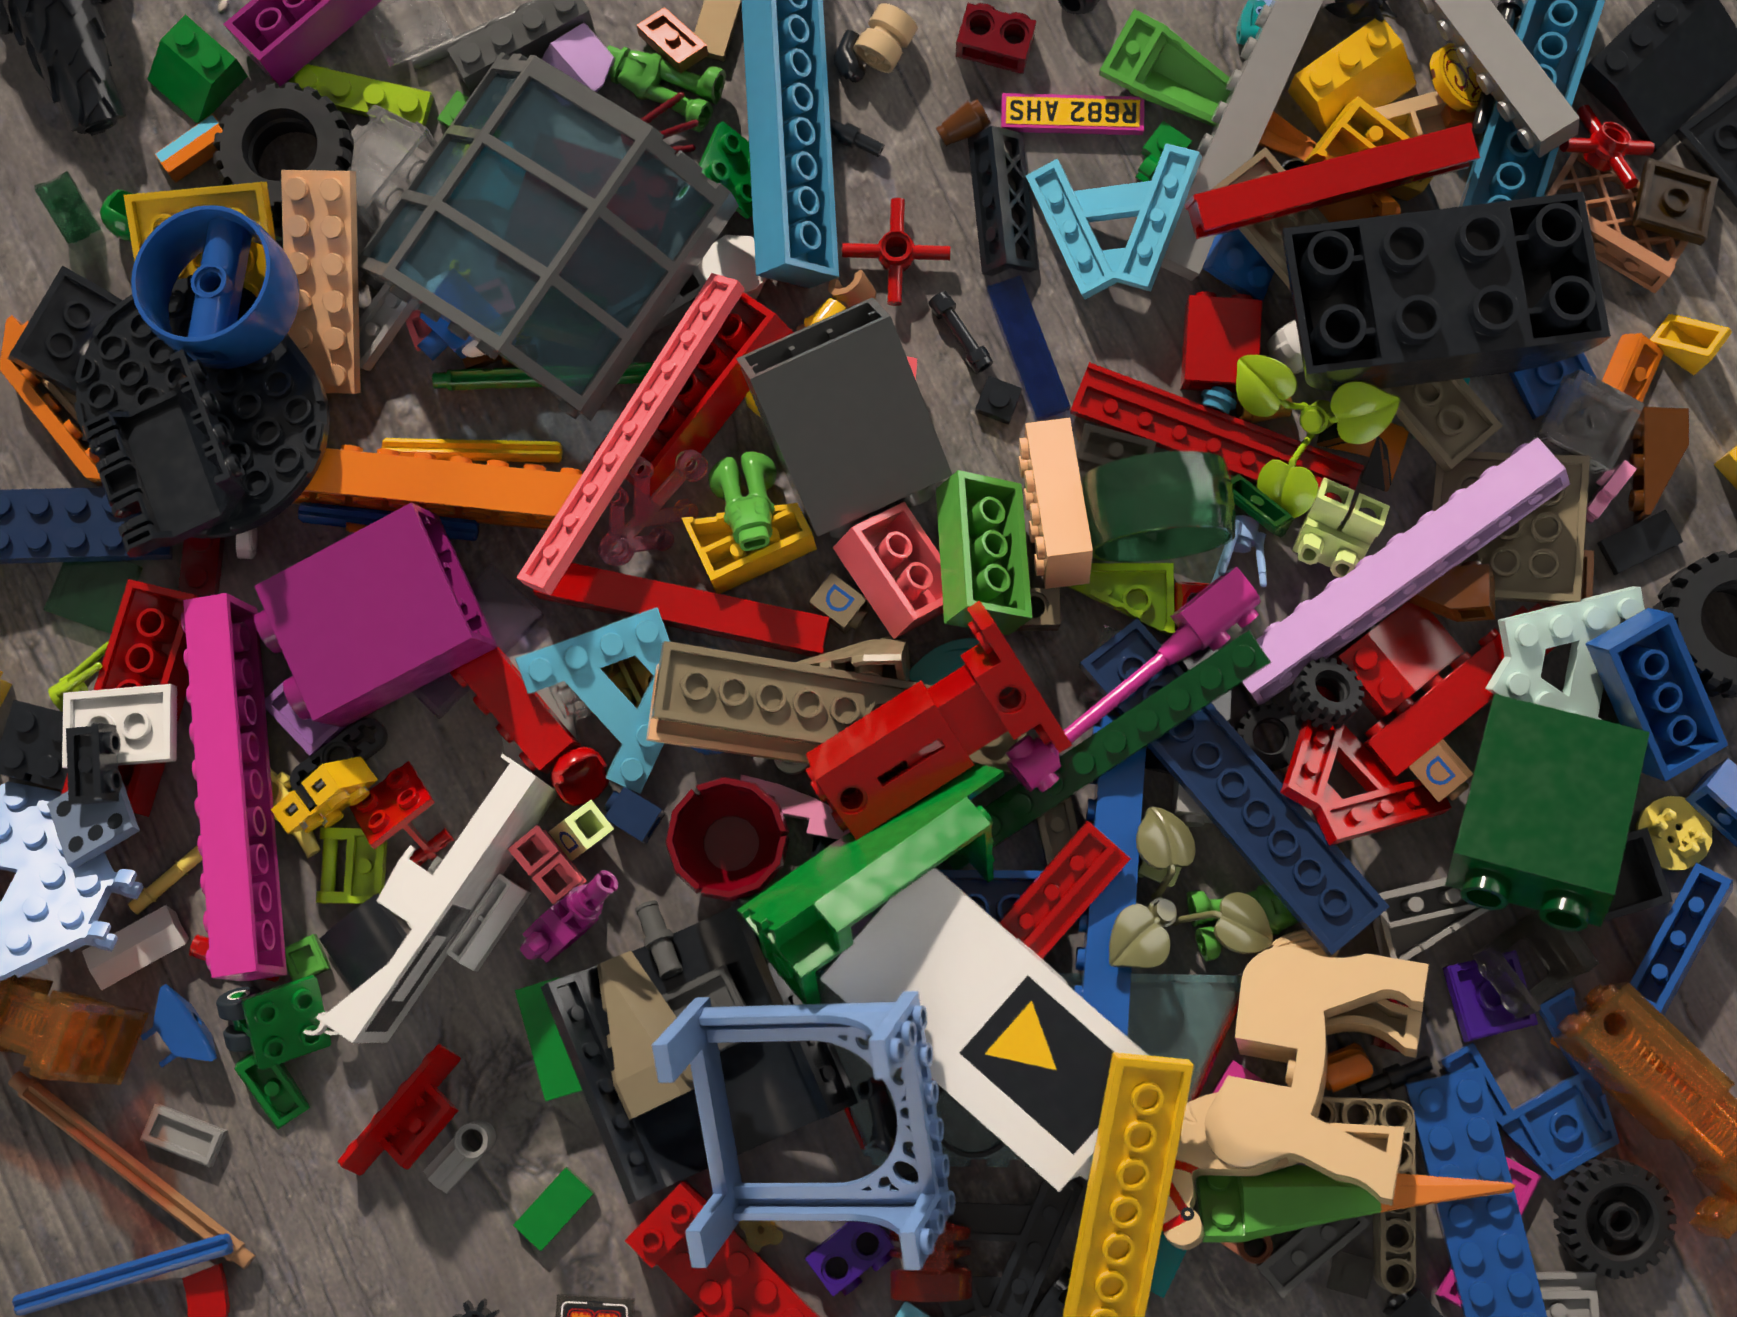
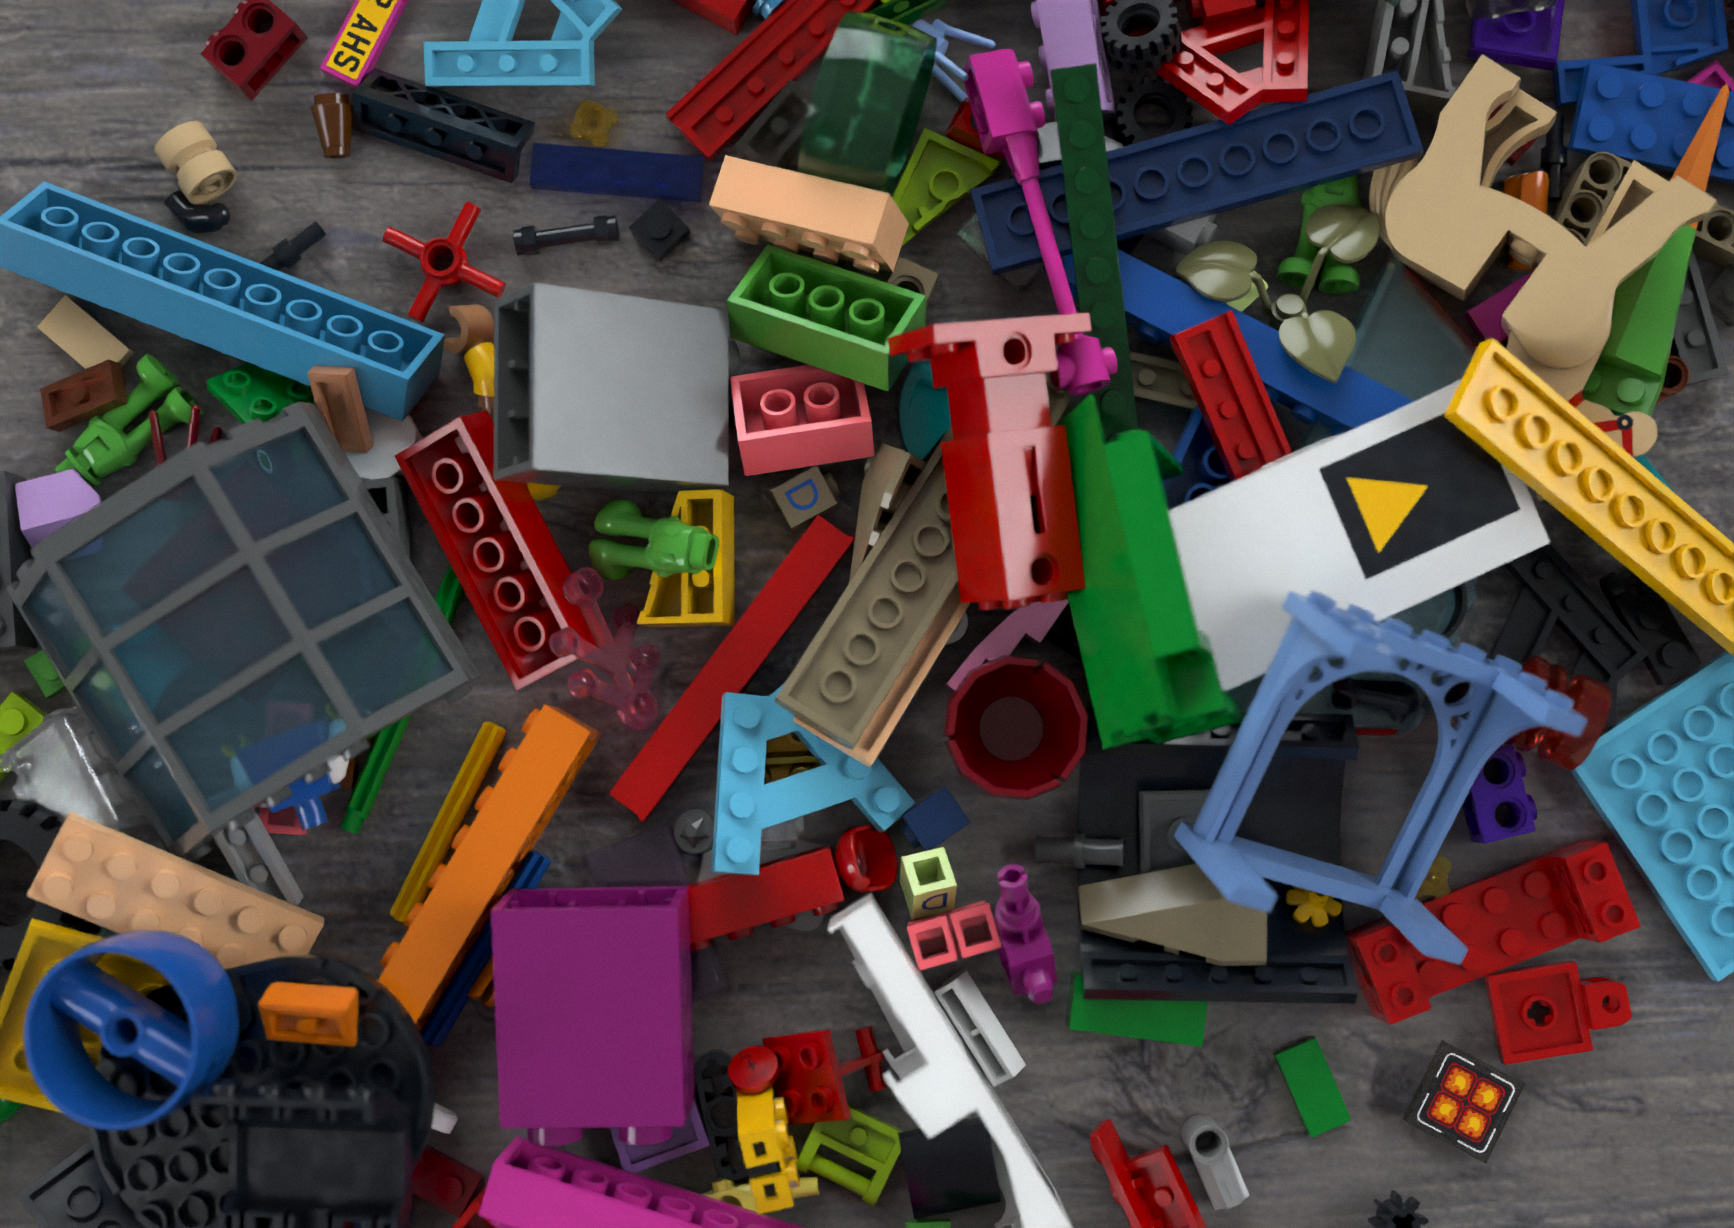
camera: 70 degrees left, 5 degrees up
(280, 409) = (310, 1013): none -> orange slope
(381, 762) = (753, 1069): none -> red piece
(544, 634) = (695, 831): none -> dark grey tile
(630, 434) = (521, 635): coral plate -> none
(694, 1144) = (1312, 904): none -> yellow plant
(745, 226) = (341, 406): none -> nougat tile
(1064, 305) = (588, 112): none -> clear yellow plate

